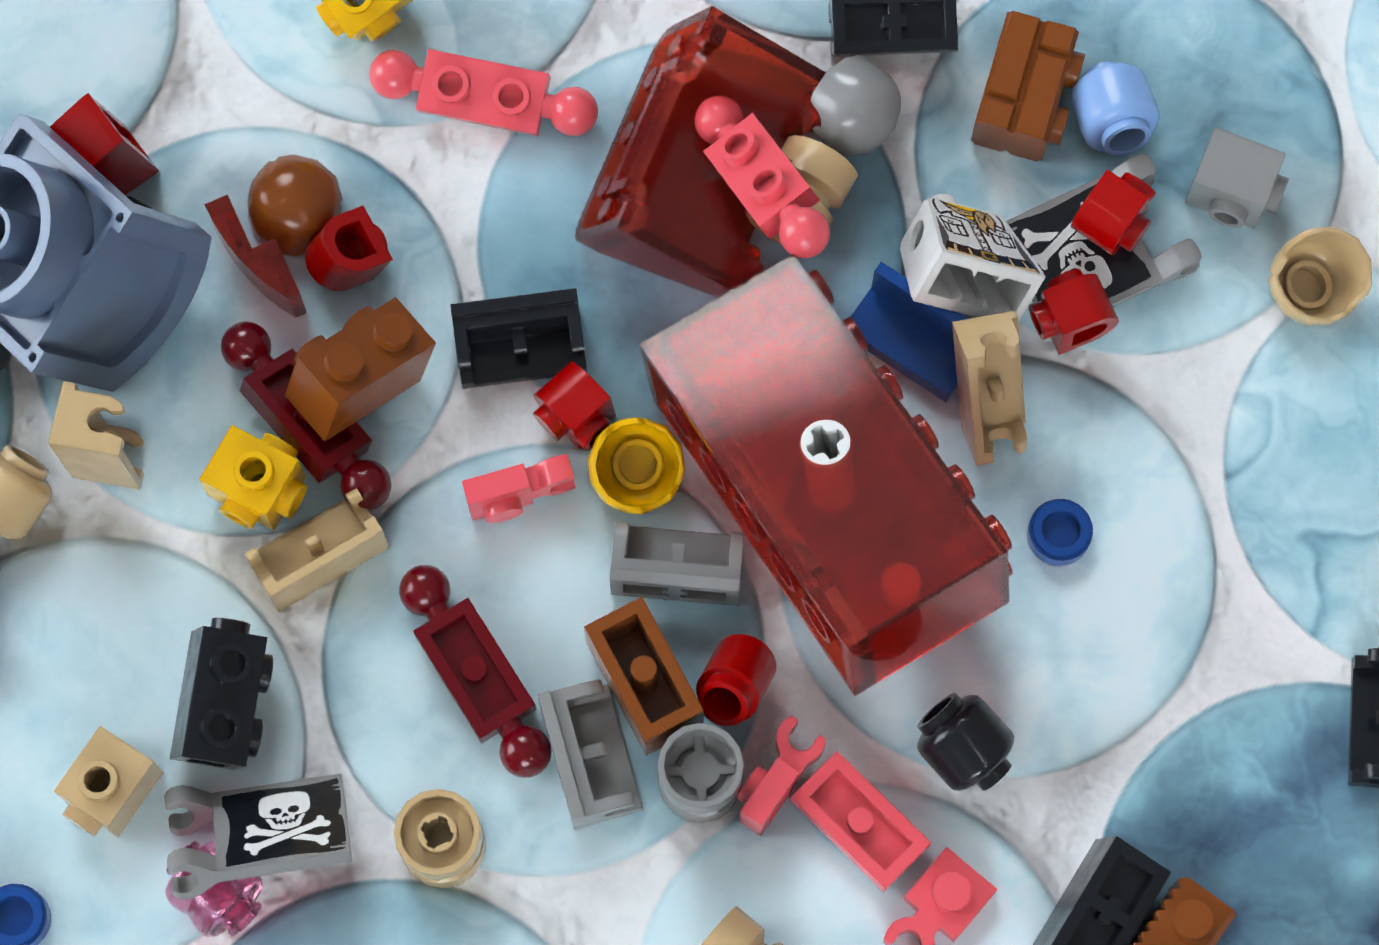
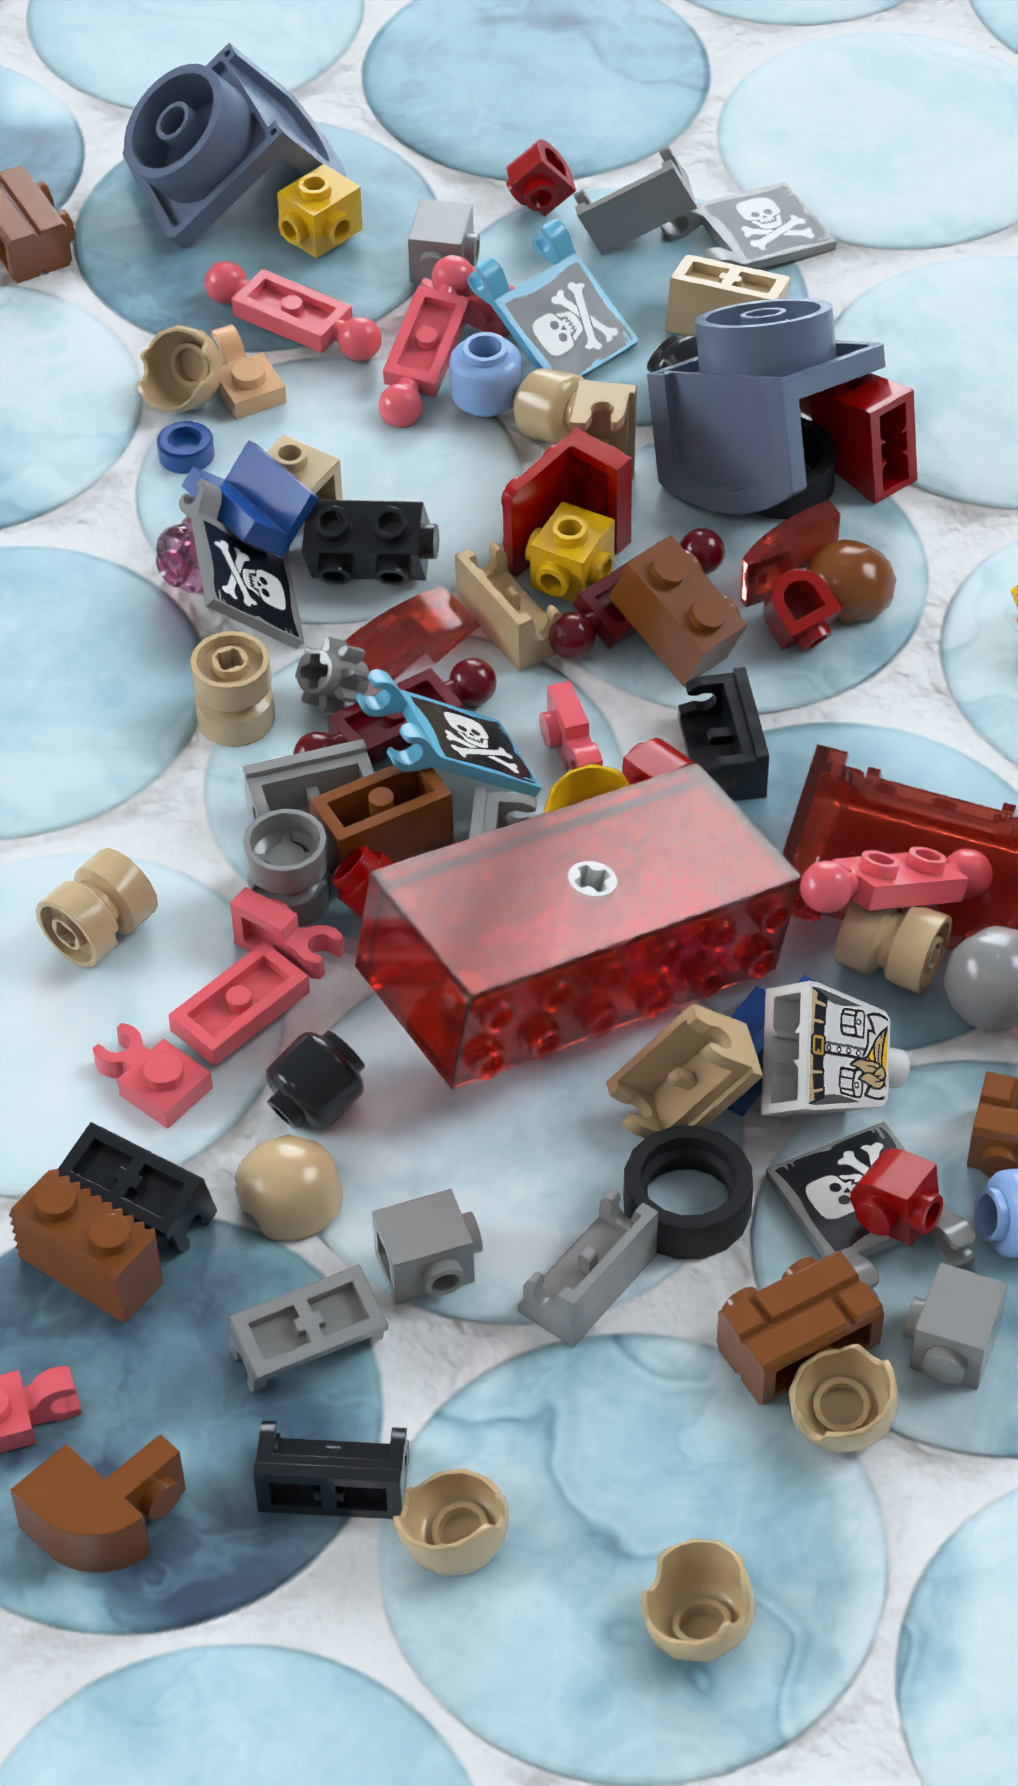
camera: 90 degrees right, 25 degrees down
(166, 809) = (259, 499): none -> blue panel
(167, 451) = (575, 472): none -> red bracket
(349, 656) = (418, 626): none -> clear red slope
(420, 733) = (332, 675): none -> light grey gear
(483, 92) = (976, 708): coral plate -> none
(537, 595) = (449, 738): none -> flag
(1059, 532) = (544, 1176): blue tile -> none
(1073, 311) = (784, 1163): red plate -> none
(1078, 769) = (289, 1187): none -> tan hair
(1106, 358) = (692, 1150): none -> black tyre
(1159, 635) = (426, 1246): none -> light grey brick
(1175, 490) = (592, 1271): none -> light grey hinge
(1237, 312) = (790, 1321): none -> dark orange brick
(1257, 742) = (305, 1325): none -> light grey hinge

